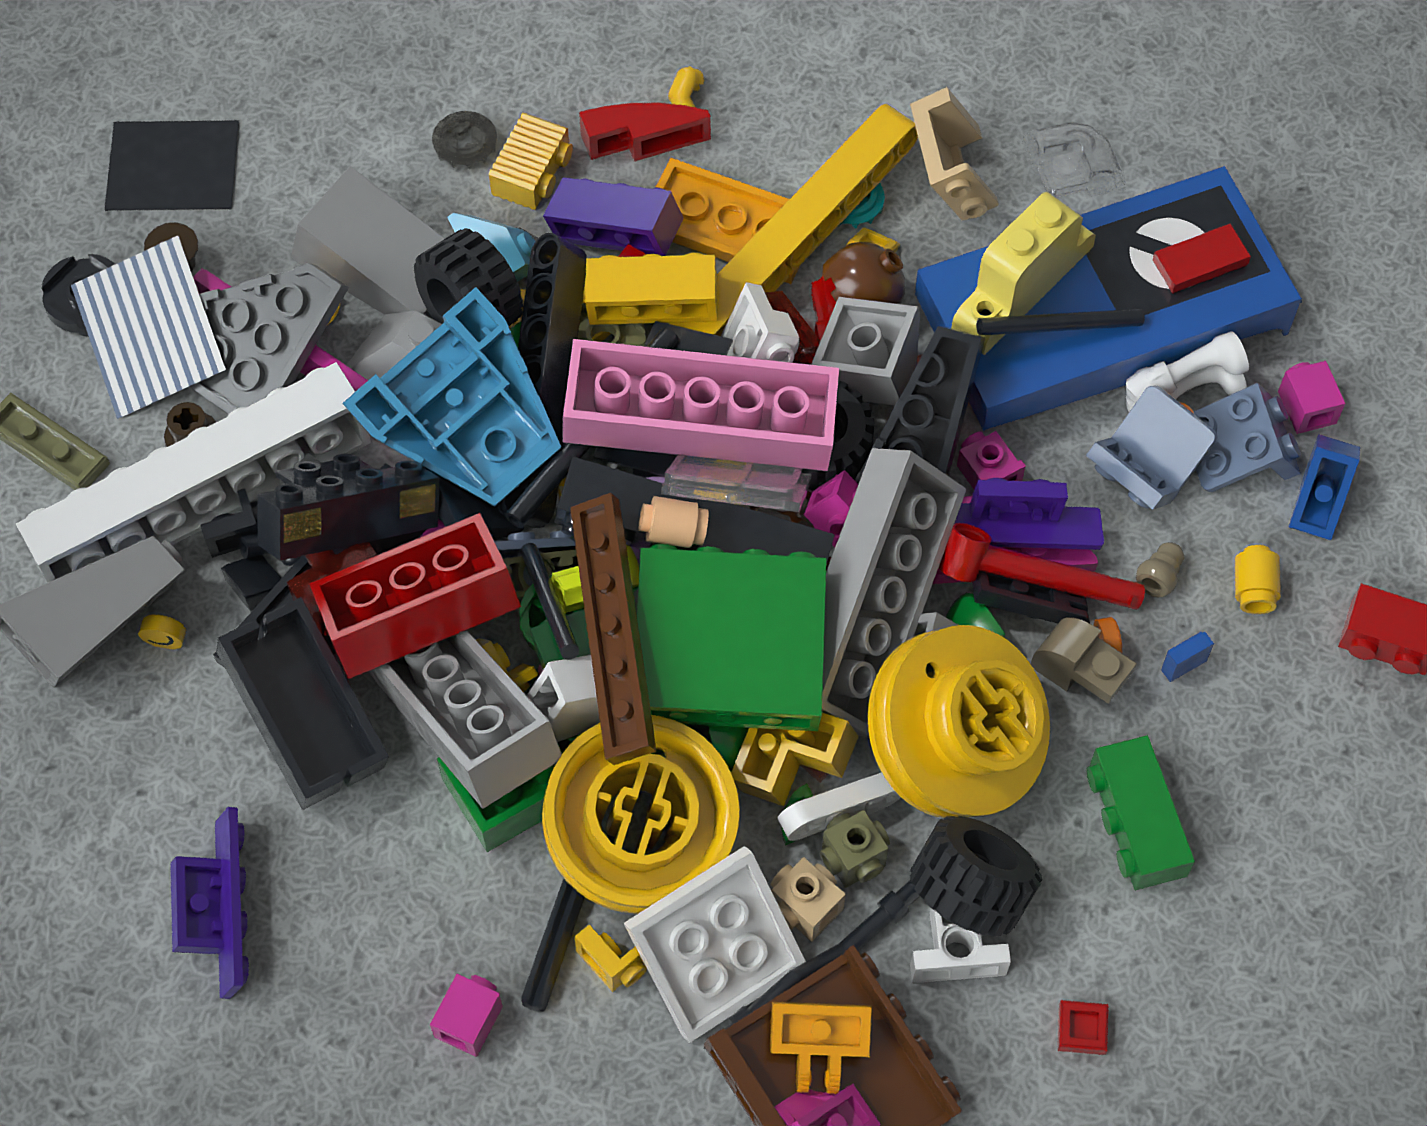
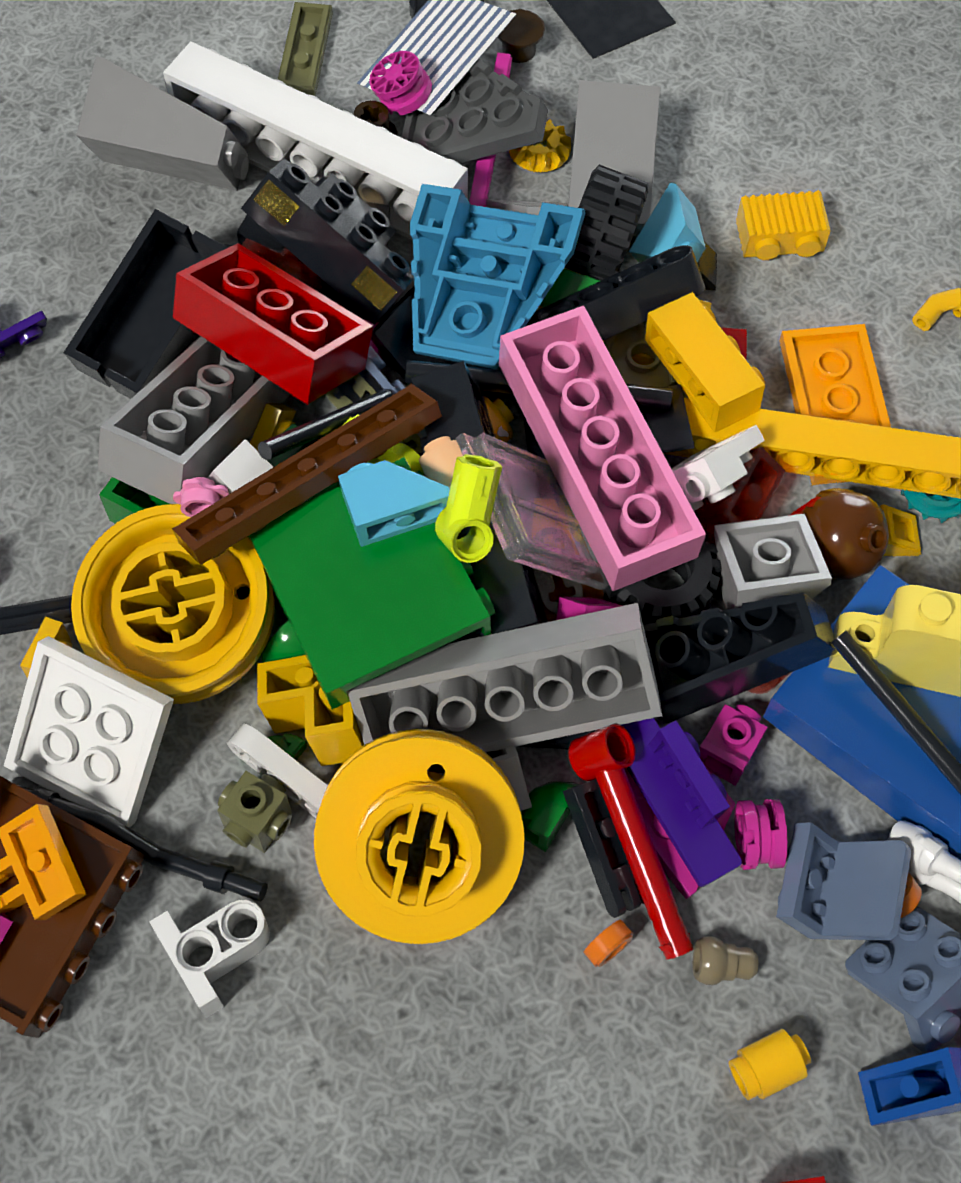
camera: 60 degrees right, 0 degrees up
(162, 631) = (180, 197): yellow tile -> none
(173, 374) = (403, 85): none -> dark pink wheel
(457, 127) = (779, 162): clear smoke gear -> none
(575, 729) = (198, 494): none -> bright pink plate
(614, 215) = (768, 307): dark purple brick -> none
(643, 128) = (878, 290): red slope -> none
(684, 575) = (389, 500): none -> medium azure slope
(746, 524) = (470, 504): none -> neon yellow piece
(807, 897) = (181, 792): tan brick -> none
(975, 876) = (234, 933): black tyre -> none
(1079, 655) = (565, 930): dark tan brick -> none
(1083, 1027) = (182, 1118): red tile -> none
(1084, 484) = (760, 833): none -> dark pink wheel
(1140, 813) = (434, 1064): green brick -> none
(1187, 656) = (637, 1031): blue tile -> none

